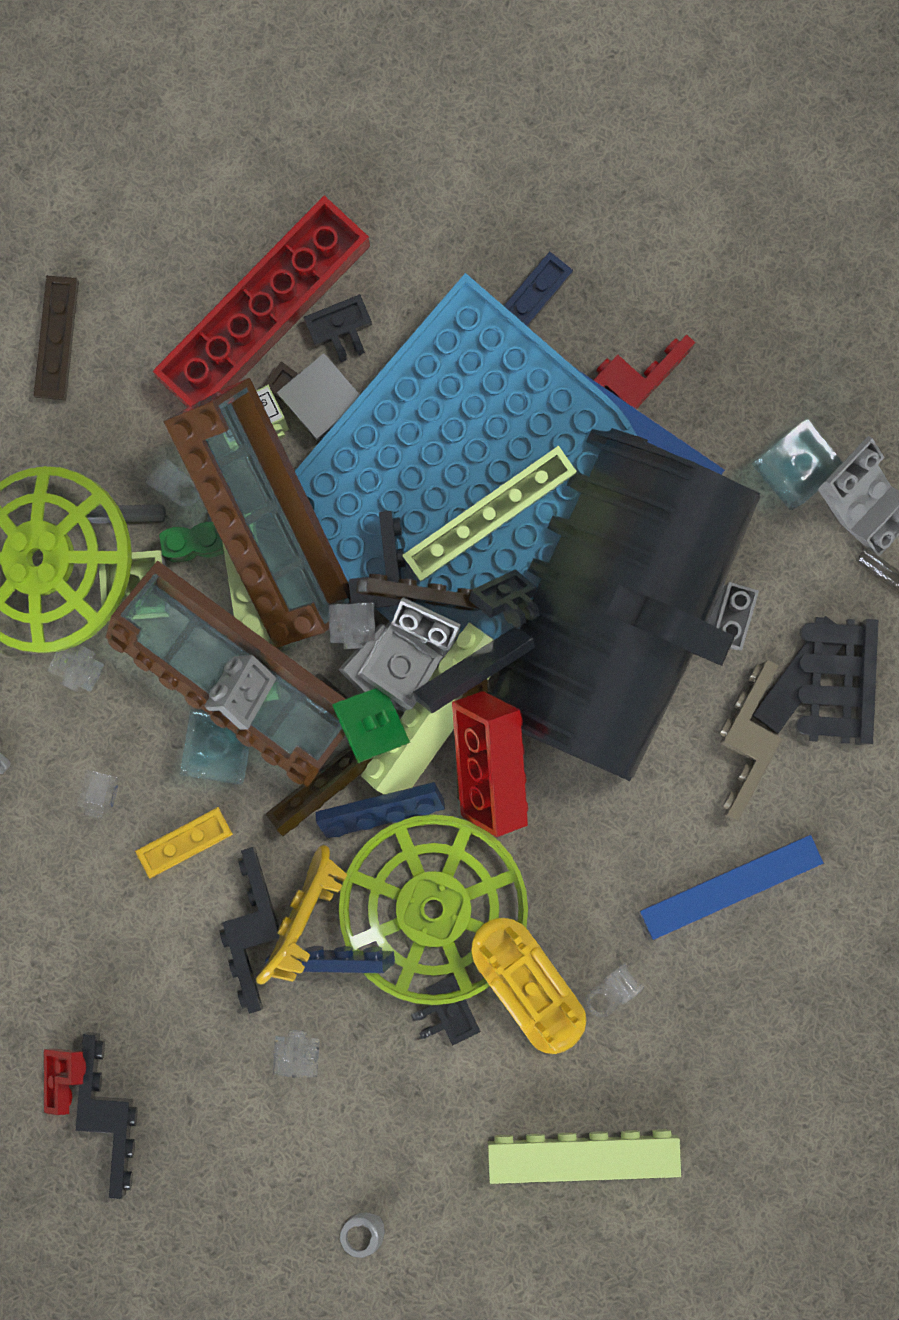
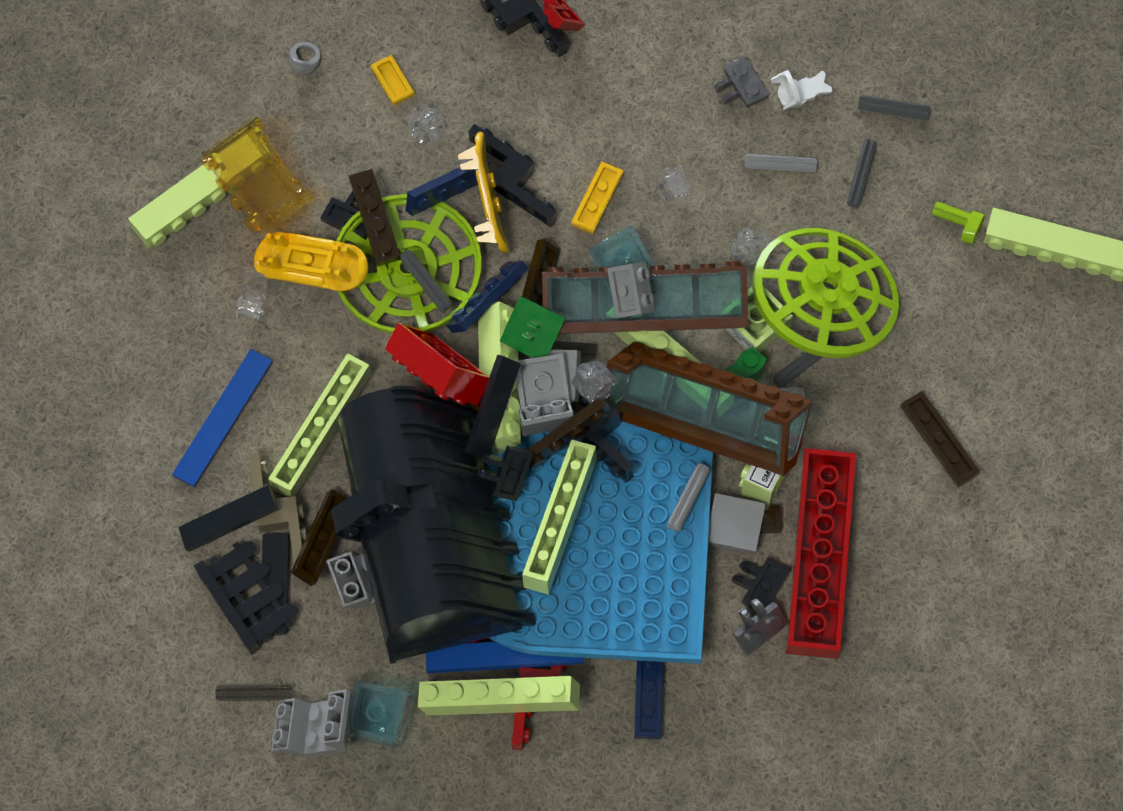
camera: 145 degrees right, 15 degrees down
(291, 1137) = (392, 80): none -> yellow tile
(348, 446) = (688, 497): none -> light grey axle
(376, 283) = (760, 627): none -> flat silver hinge
(430, 871) = (426, 281): none -> dark grey axle
(430, 983) = (374, 217): none -> dark brown plate
(521, 1116) = (255, 177): none -> clear yellow windscreen
(646, 798) = (319, 427): none -> yellowish green brick
(676, 389) = (499, 695): none -> yellowish green brick
(728, 680) = (318, 541): none -> dark brown plate
(804, 769) = (228, 518): none -> black tile

